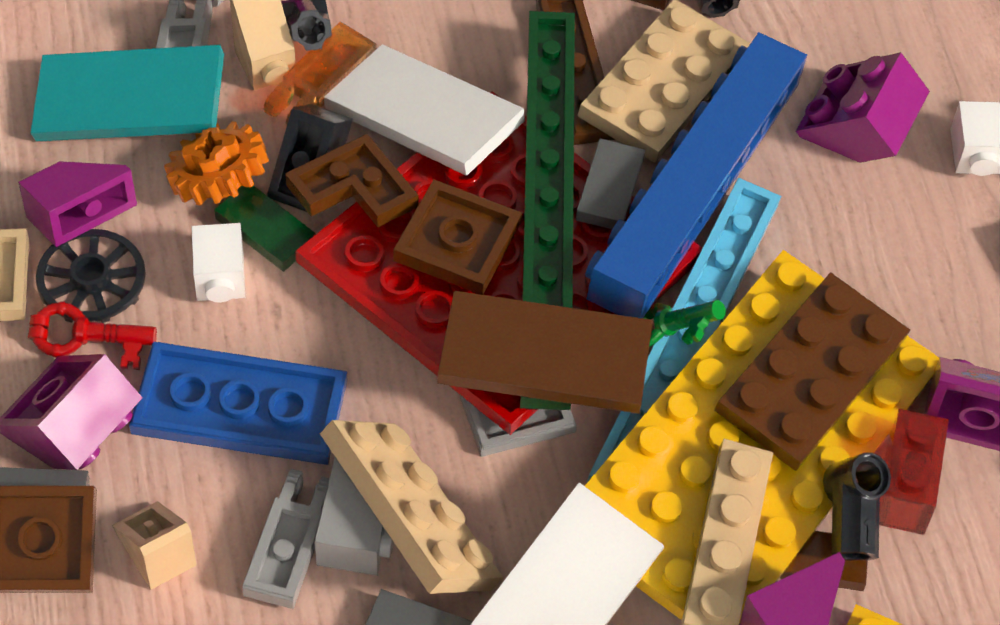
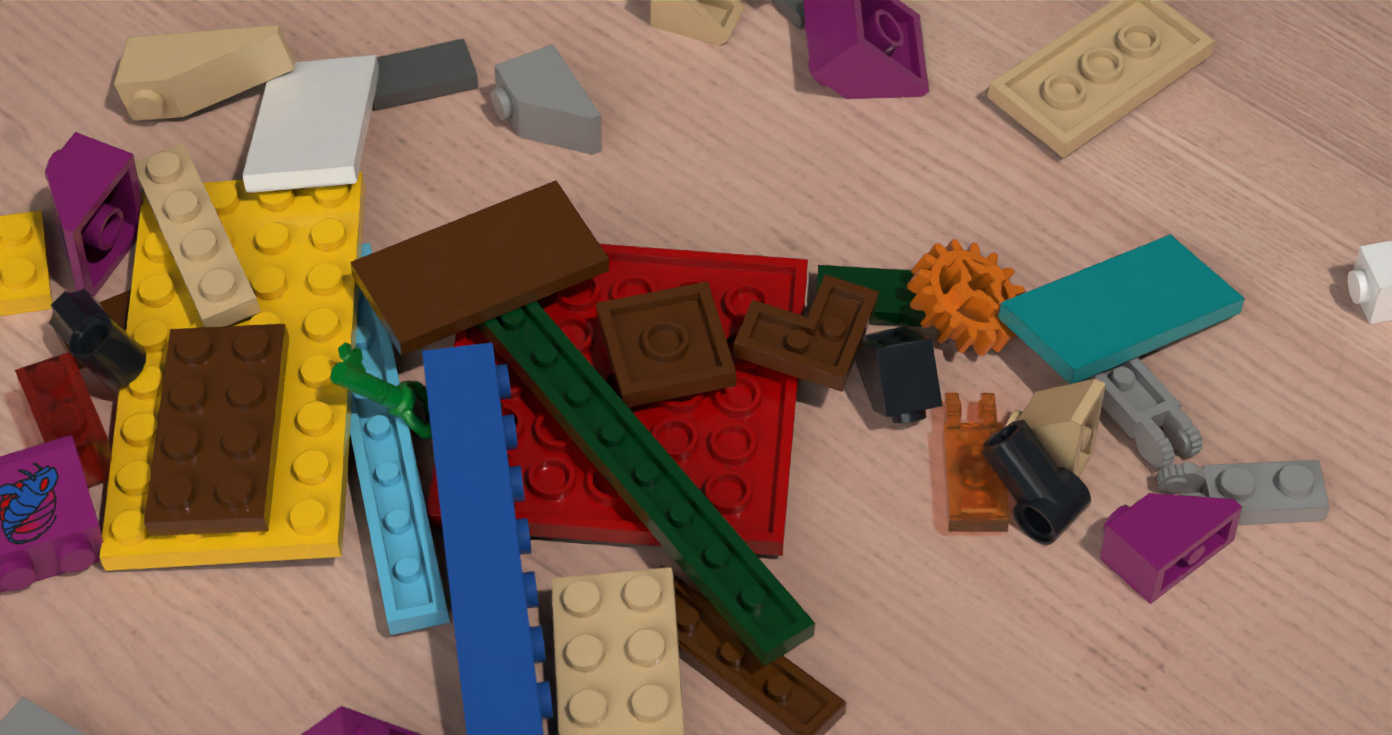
camera: 145 degrees right, 5 degrees down
(76, 197) = (1058, 188): magenta slope -> none
(92, 275) = (977, 166): black wheel -> none
(131, 336) = (927, 114): red piece -> none
(218, 262) = (872, 223): white brick -> none
(238, 402) = (737, 147): blue tile -> none
(285, 544) = (589, 59): light grey hinge -> none
(412, 506) = (500, 120): tan plate -> none
(425, 109) = (829, 473): white tile -> none
(610, 184) = (569, 506): dark grey tile -> none

